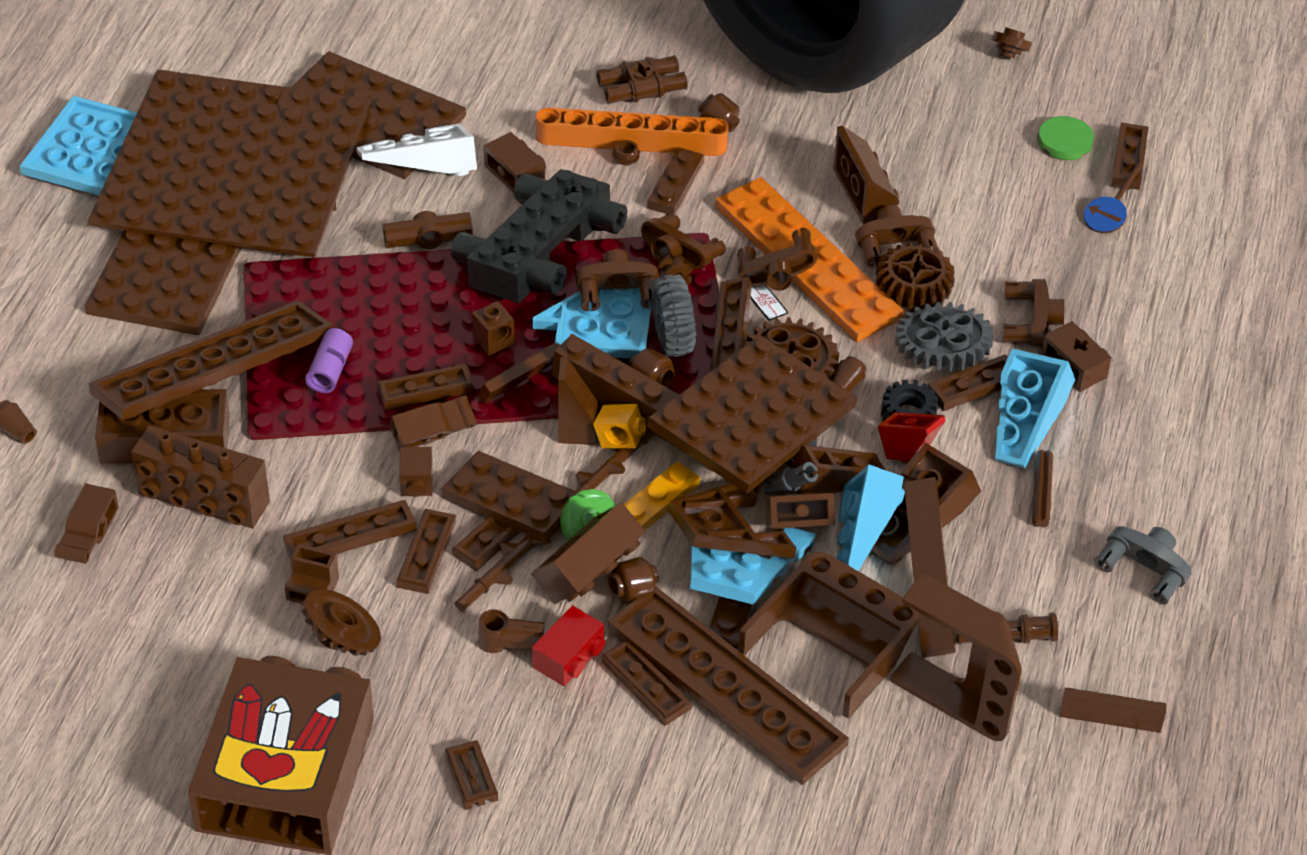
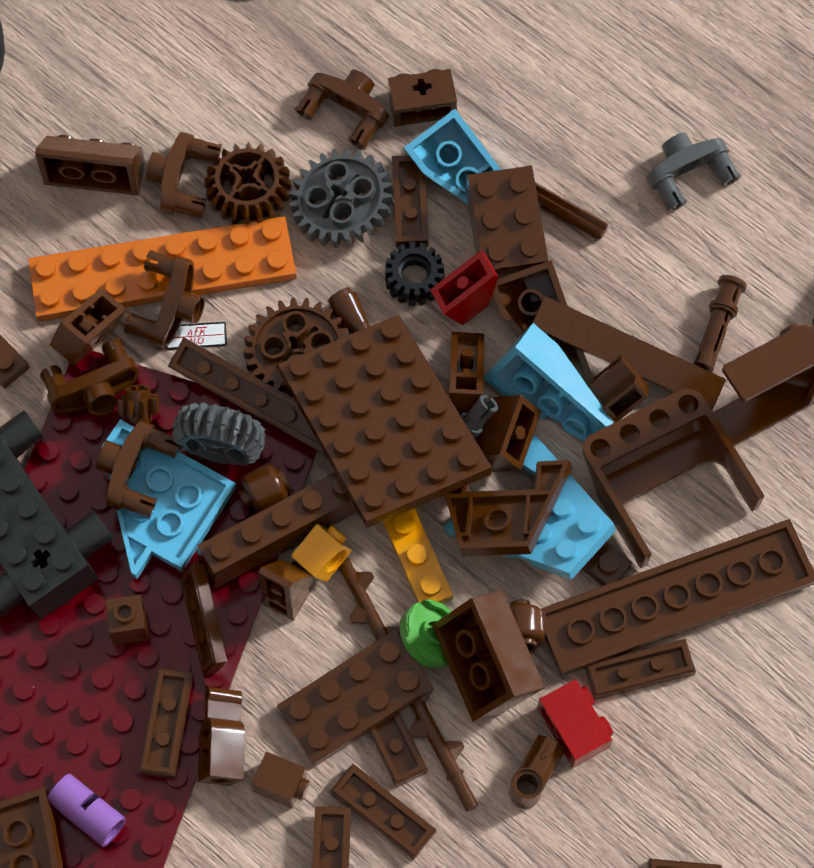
camera: 65 degrees left, 20 degrees up
(721, 219) = (87, 327): none -> reddish brown brick
(892, 568) = (619, 388): none -> reddish brown piece
(996, 438) = (506, 218): none -> reddish brown brick

